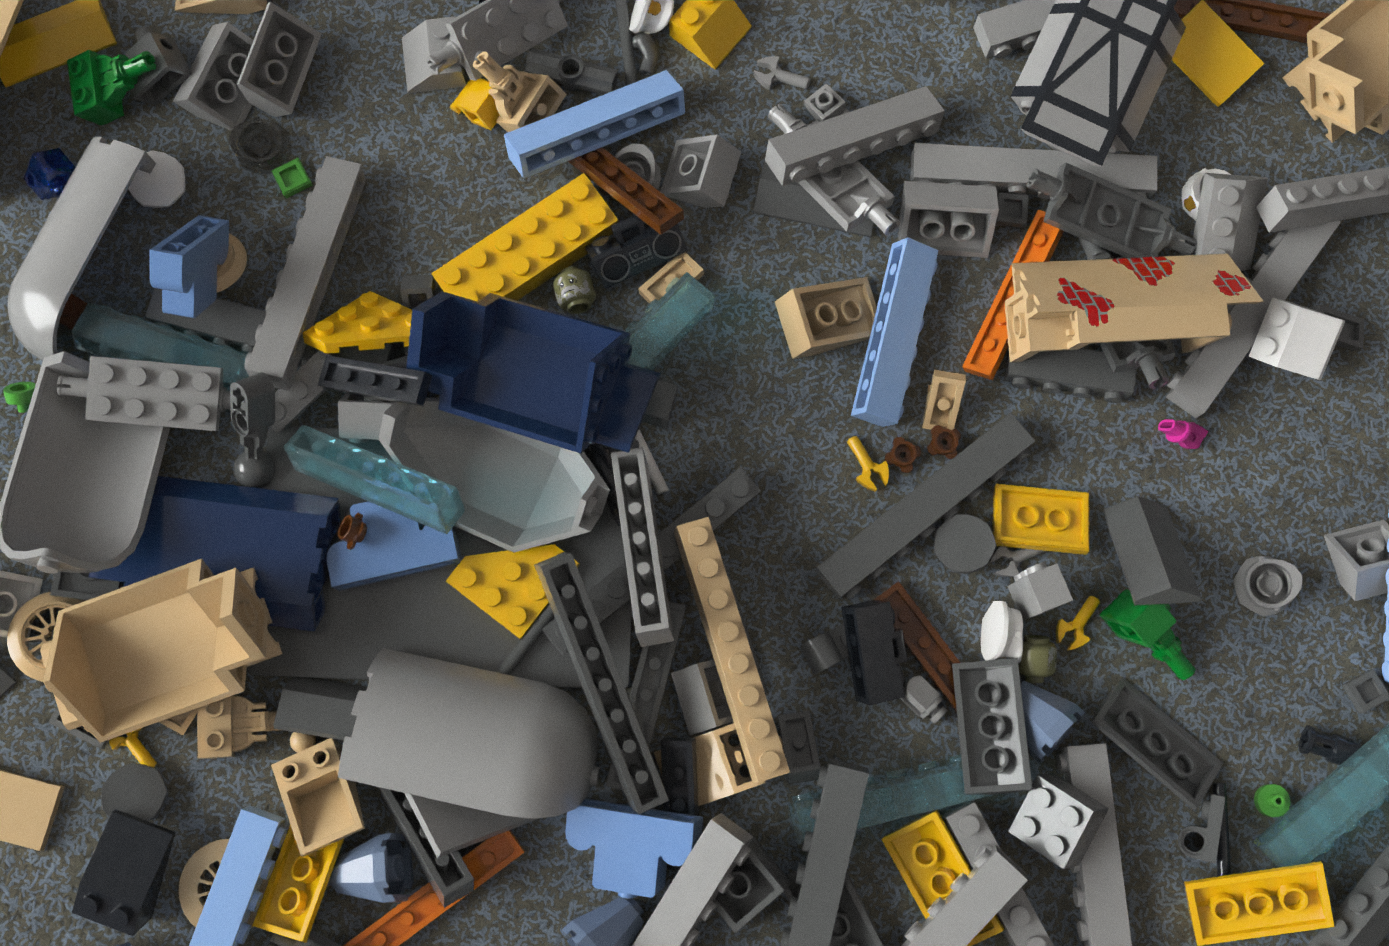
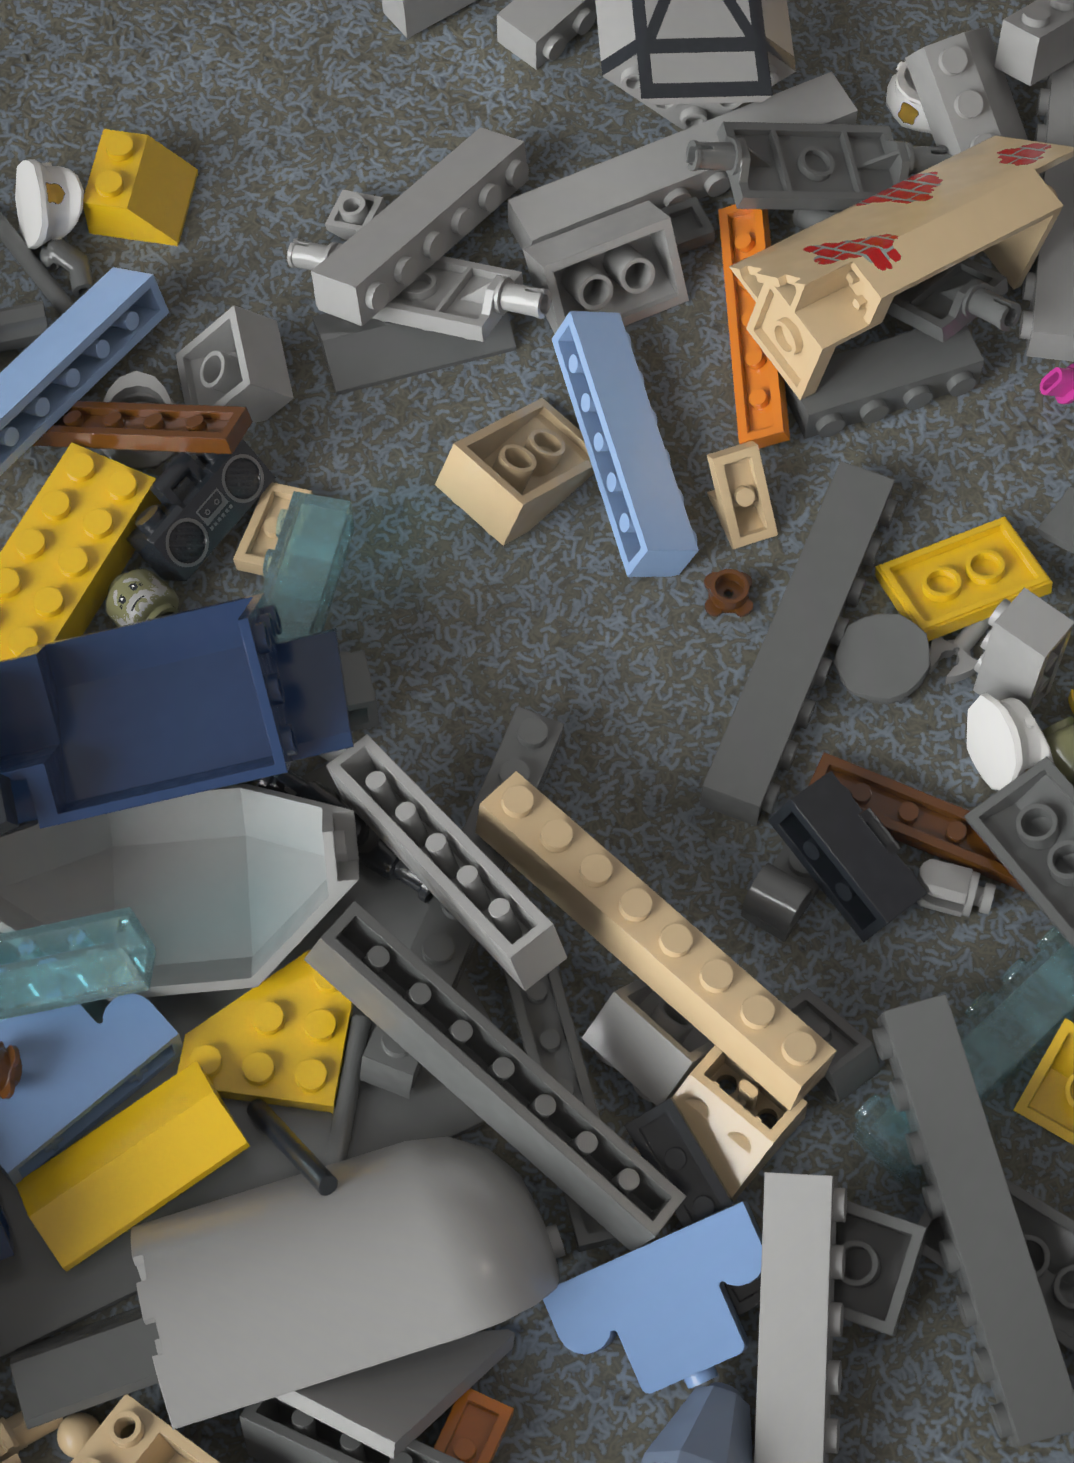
camera: 30 degrees left, 15 degrees down
(398, 614) = (131, 1166): none -> yellow slope
(482, 654) = (292, 1147): none -> black bar
(778, 75) = (268, 211): light grey bar -> none
(867, 465) = (690, 632): yellow bar -> none
(950, 436) = (778, 537): reddish brown plate -> none

